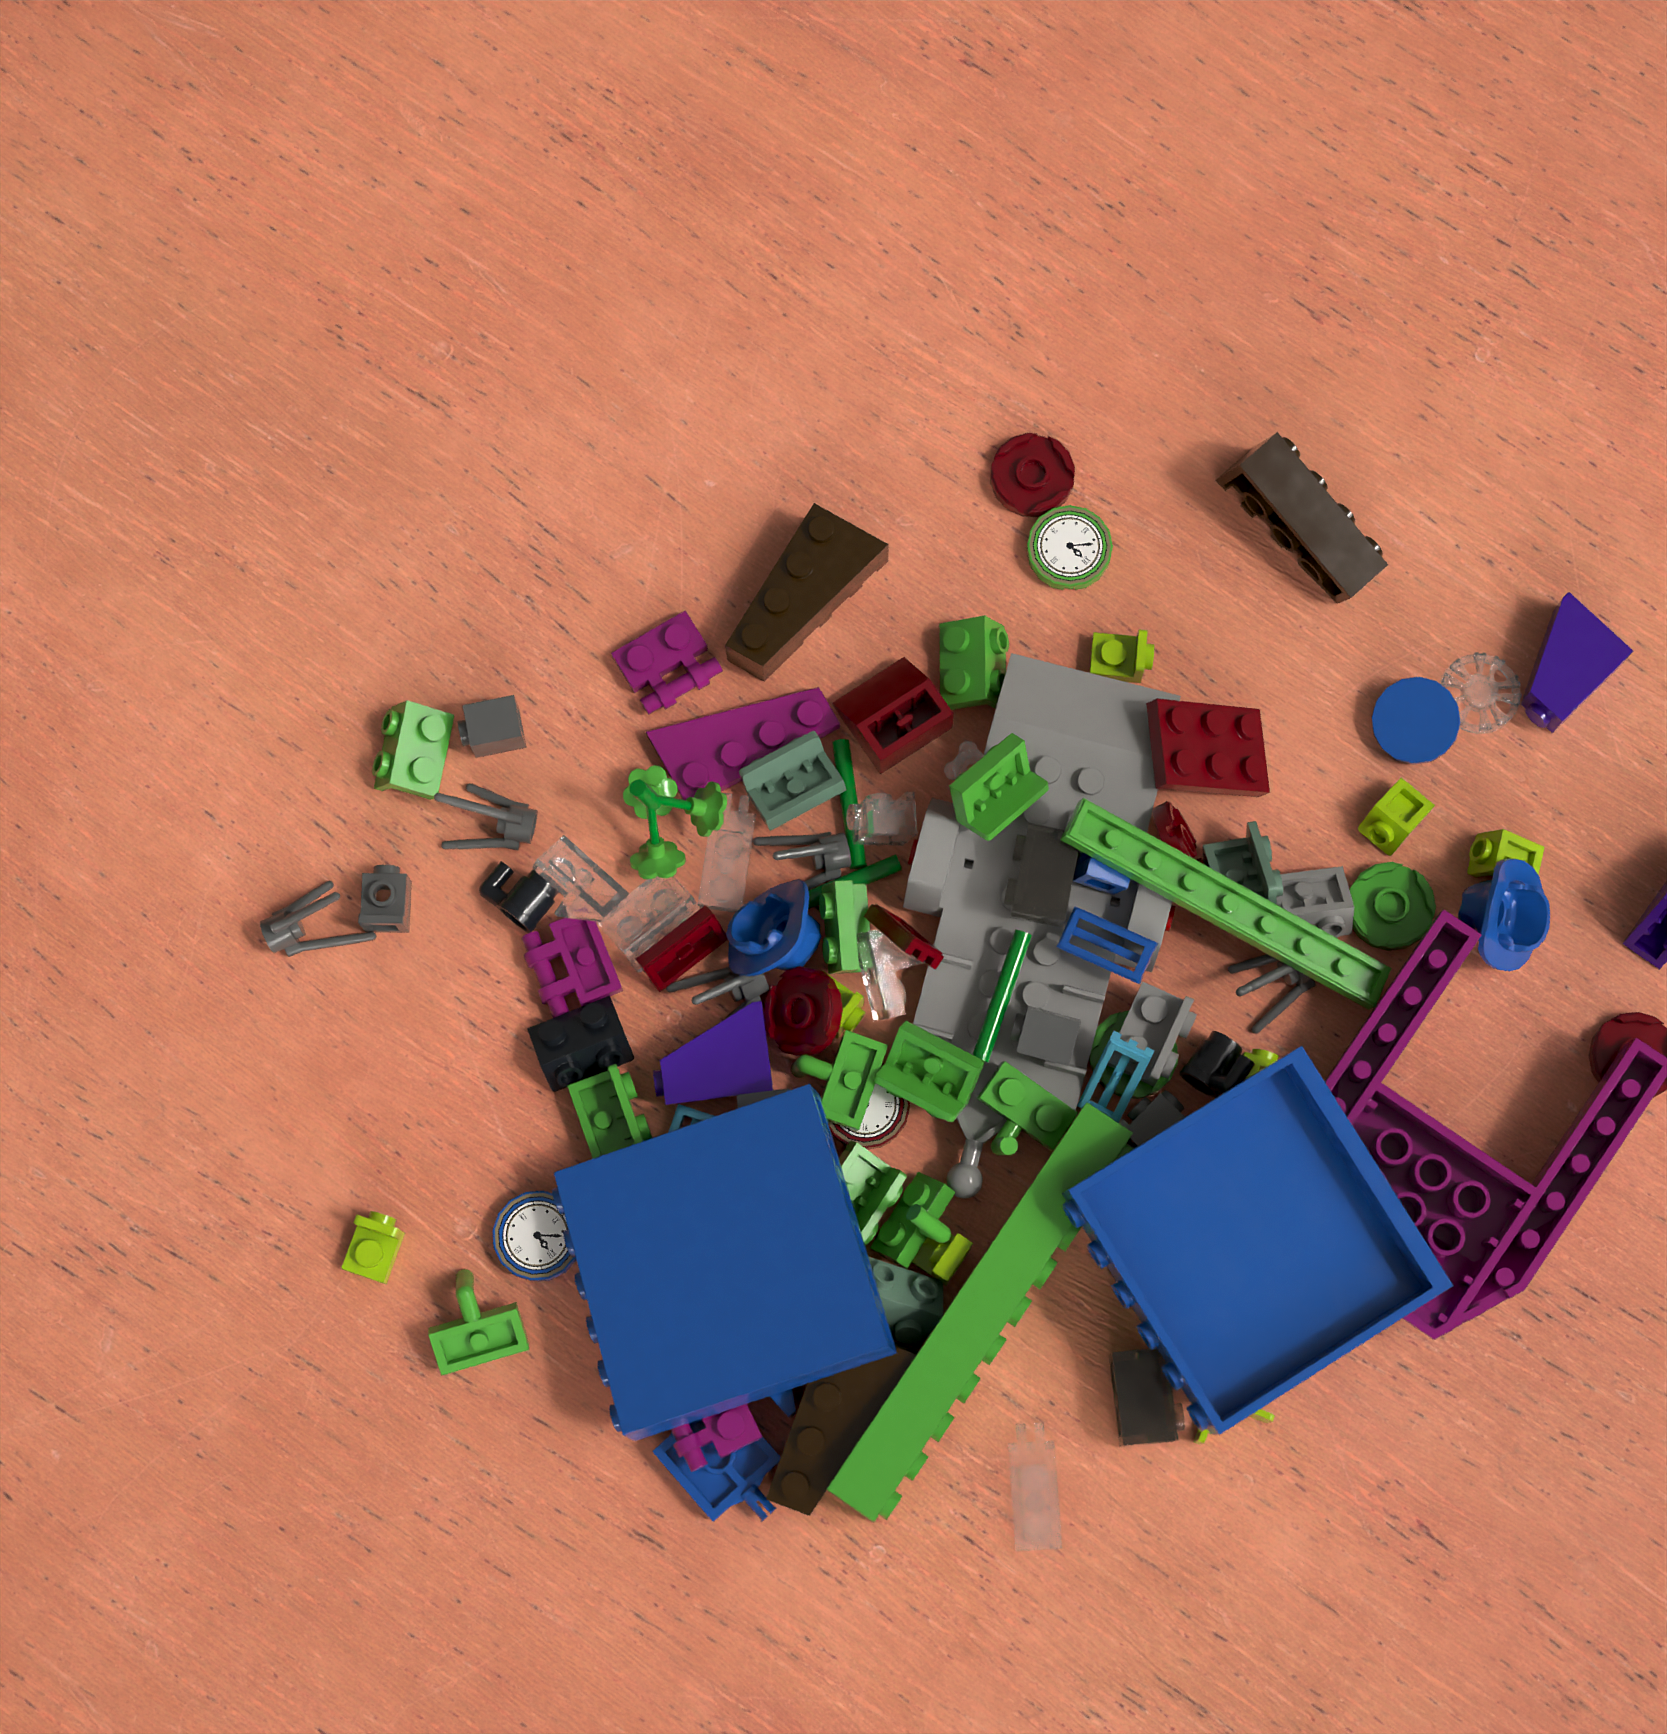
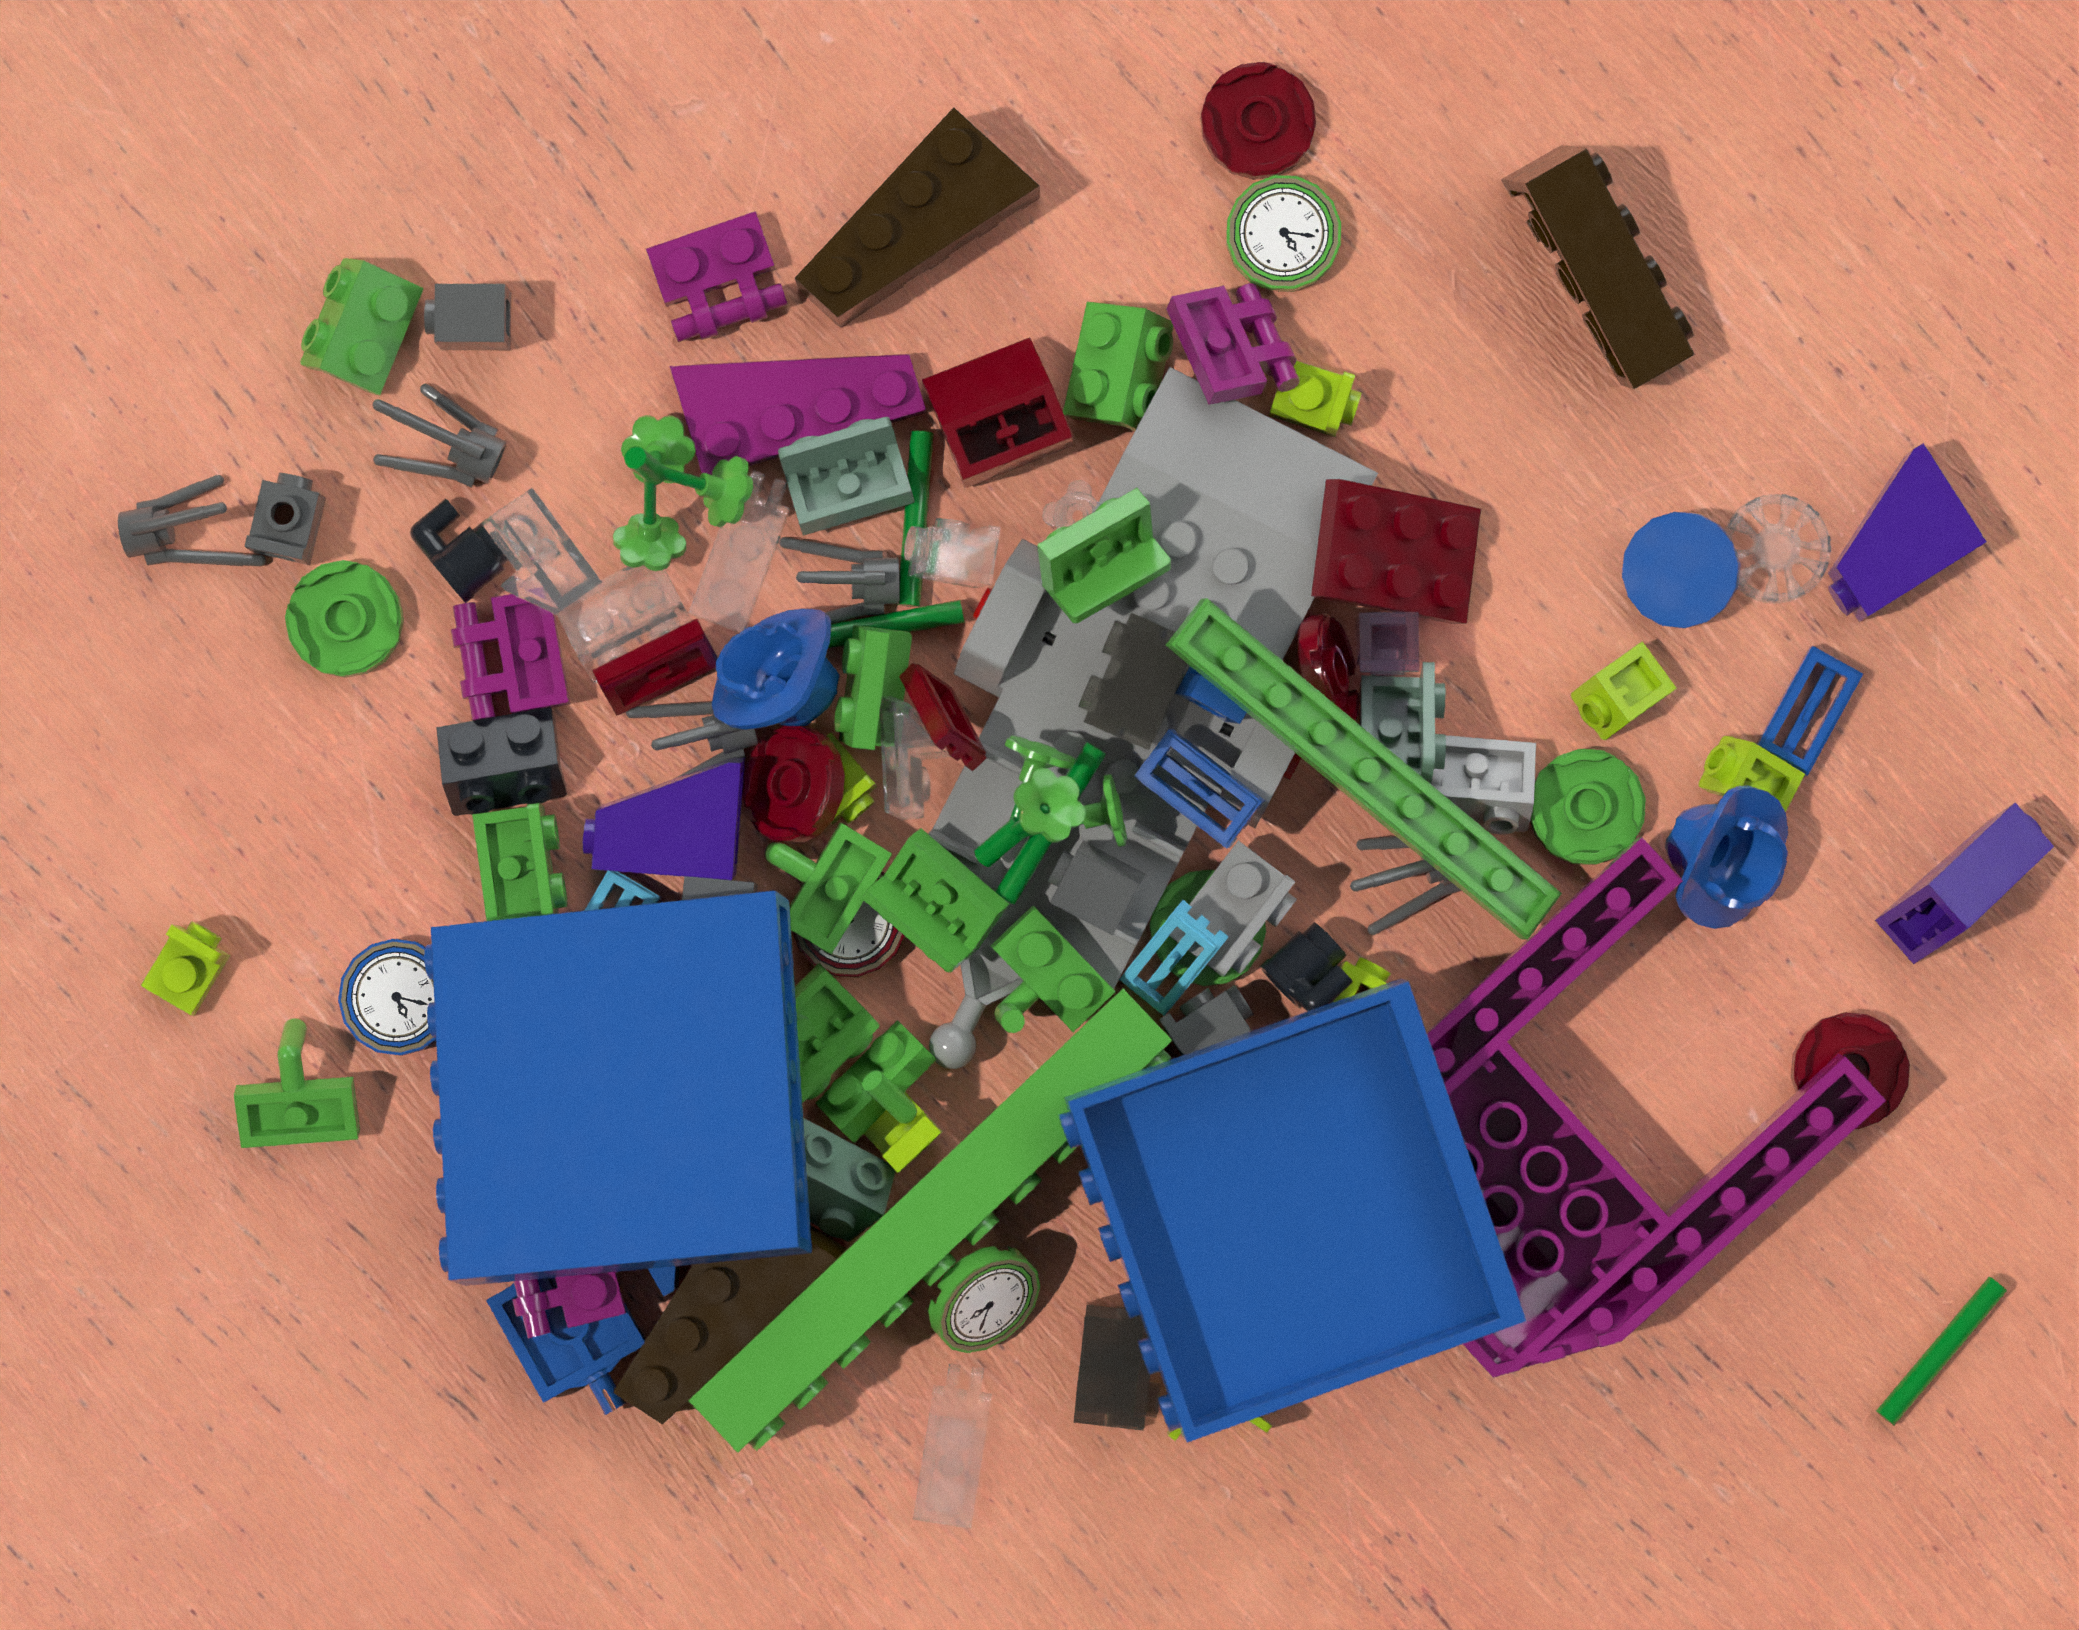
camera: 15 degrees right, 10 degrees up
(442, 965) = (344, 619): none -> bright green tile
(1001, 977) = (1050, 803): none -> bright green plant
(1033, 1366) = (984, 1299): none -> tile
(1044, 630) = (1219, 348): none -> magenta plate
(1217, 814) = (1387, 643): none -> clear purple brick
(1553, 798) = (1832, 667): none -> blue tile

